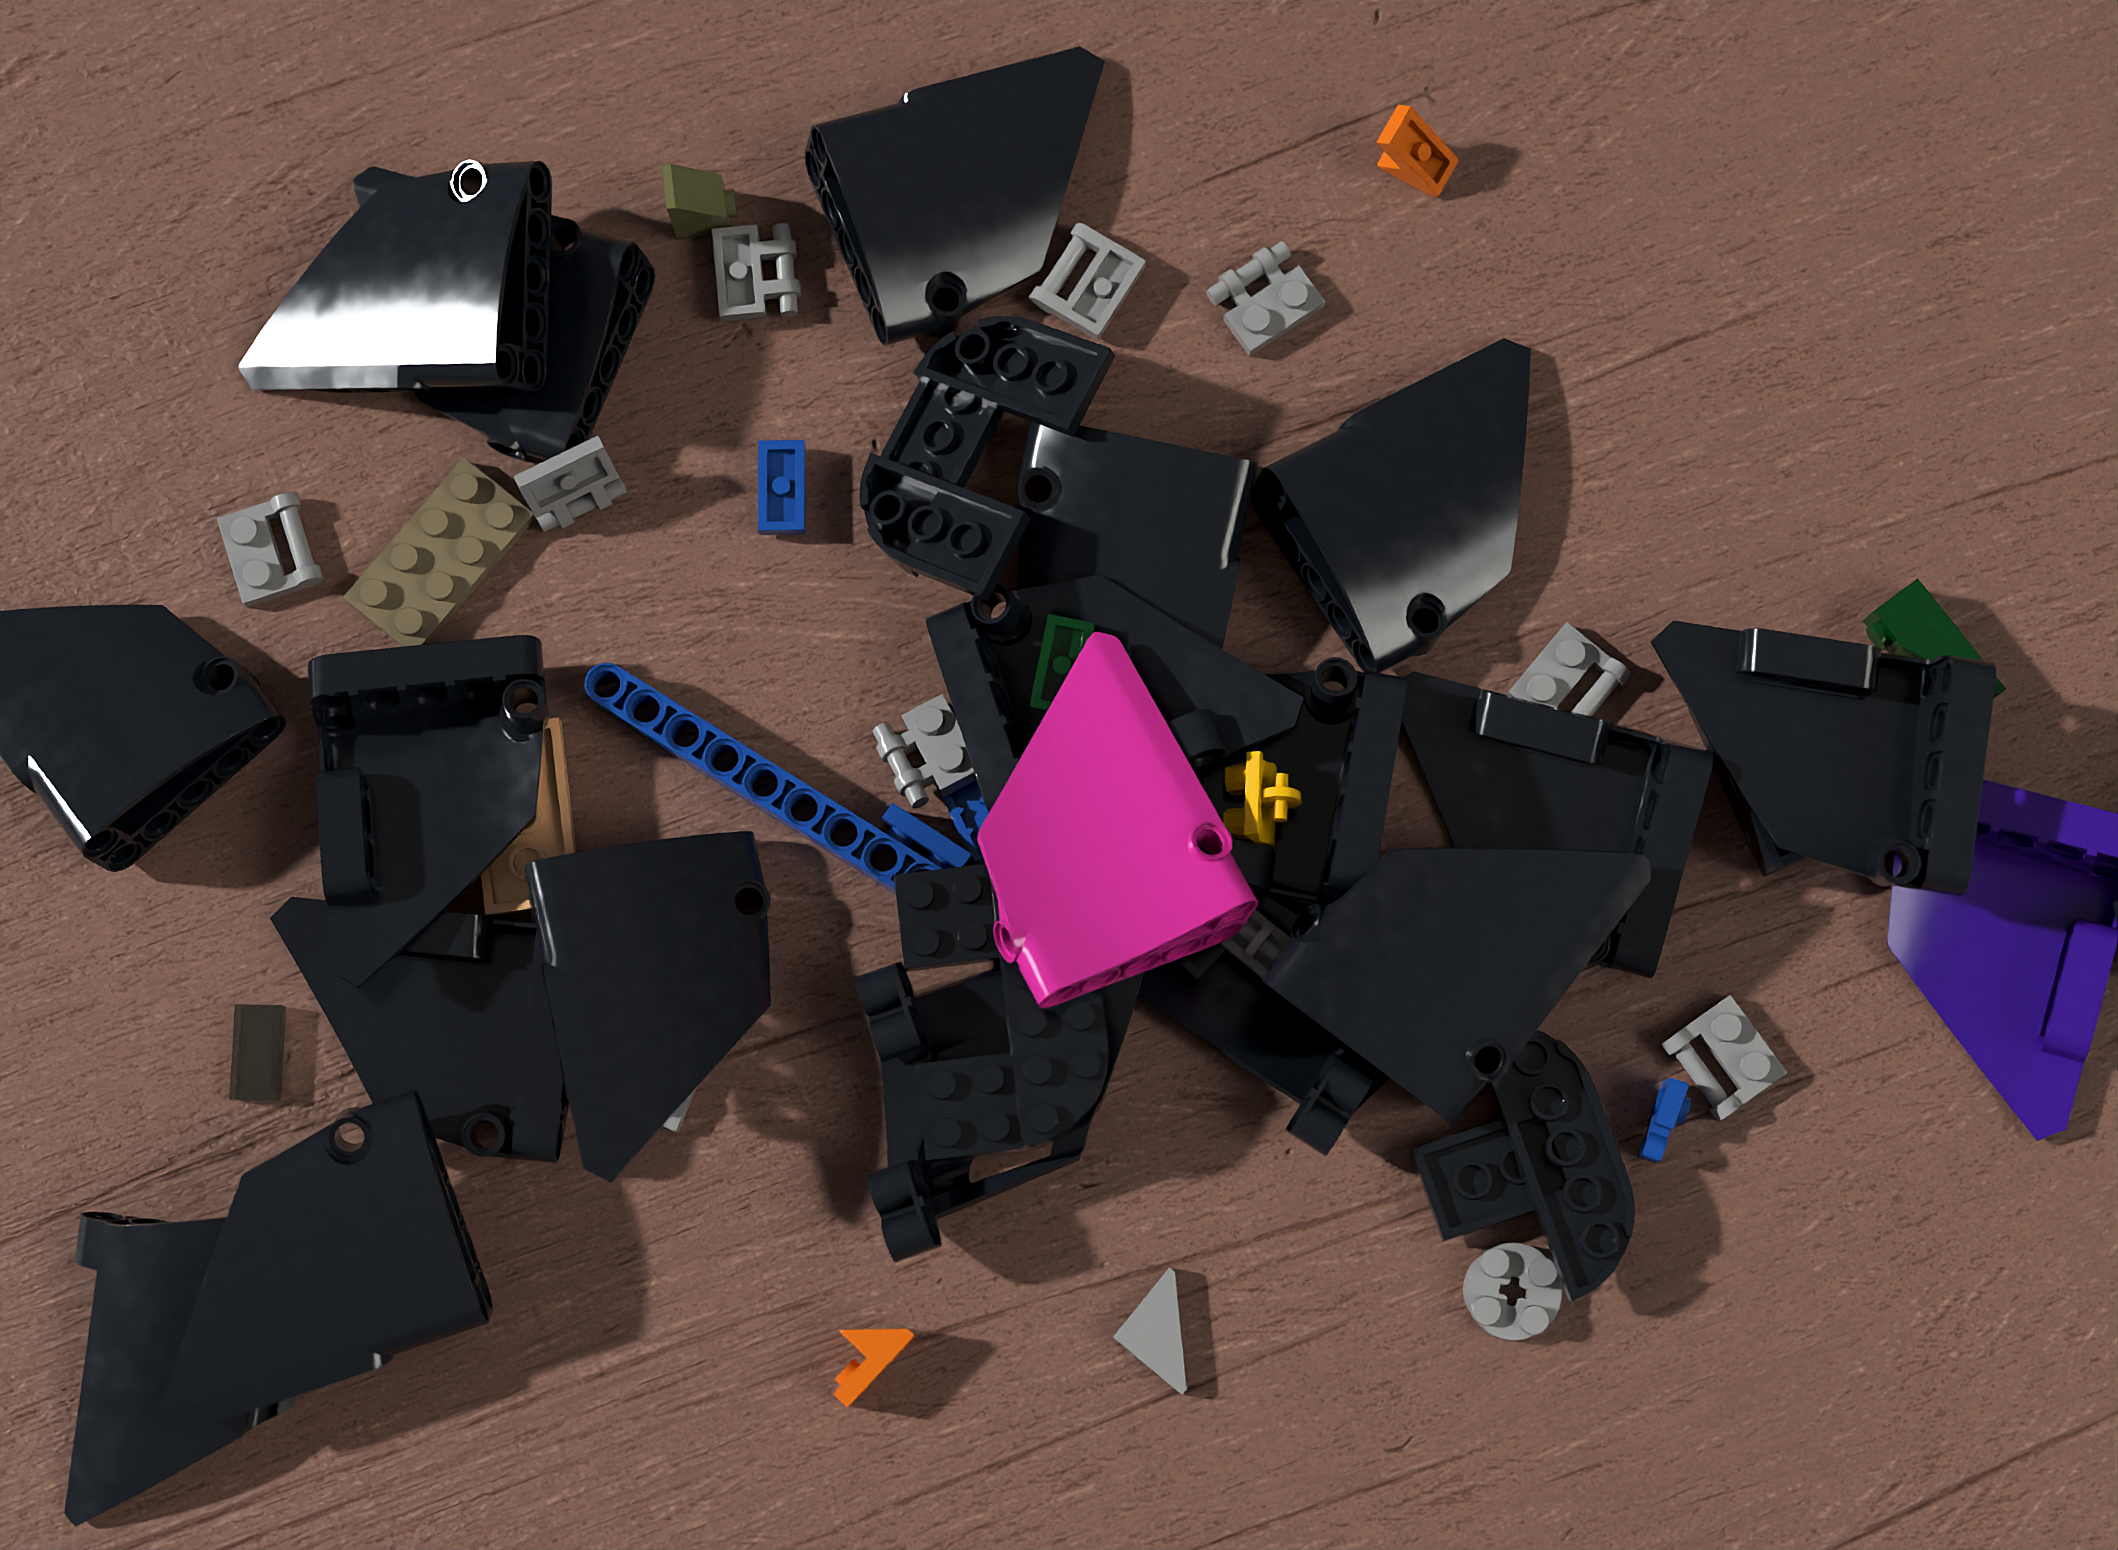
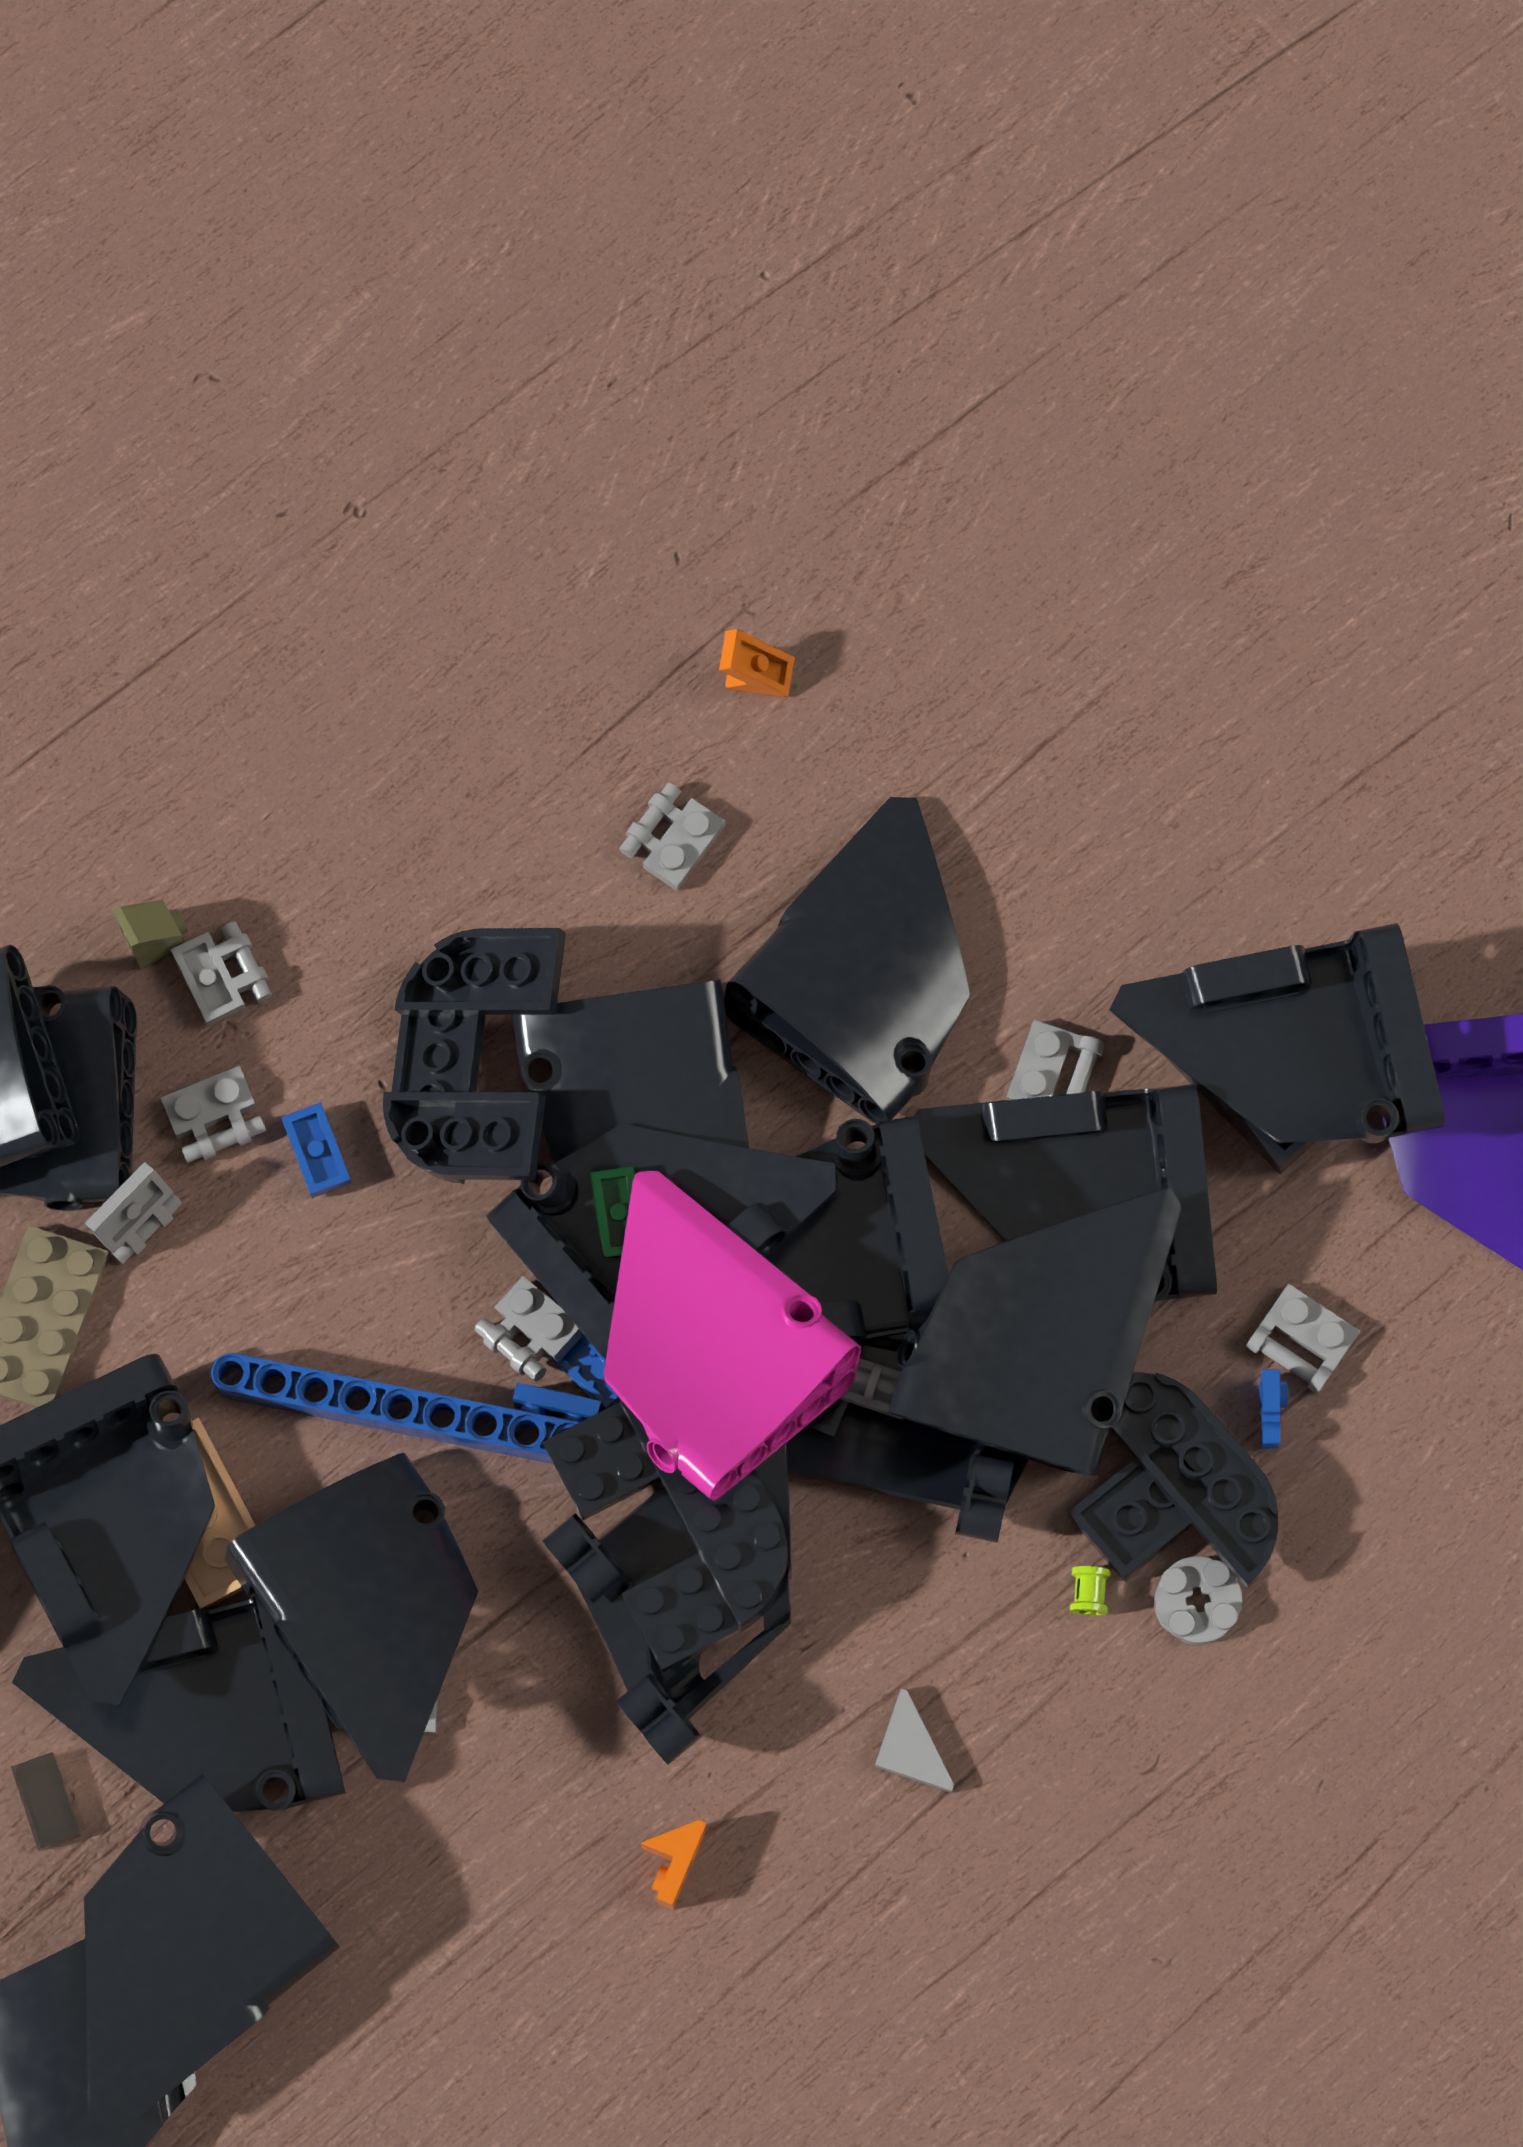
camera: 20 degrees left, 5 degrees down
(692, 400) = (208, 1104): none -> light grey plate
(952, 188) = (367, 839): black panel -> none
(1099, 289) = (527, 878): light grey plate -> none
(1265, 799) = (835, 1262): yellow hips -> none
(1403, 1239) = (1090, 1590): none -> lime bush
(1918, 628) = (1331, 916): dark green slope -> none

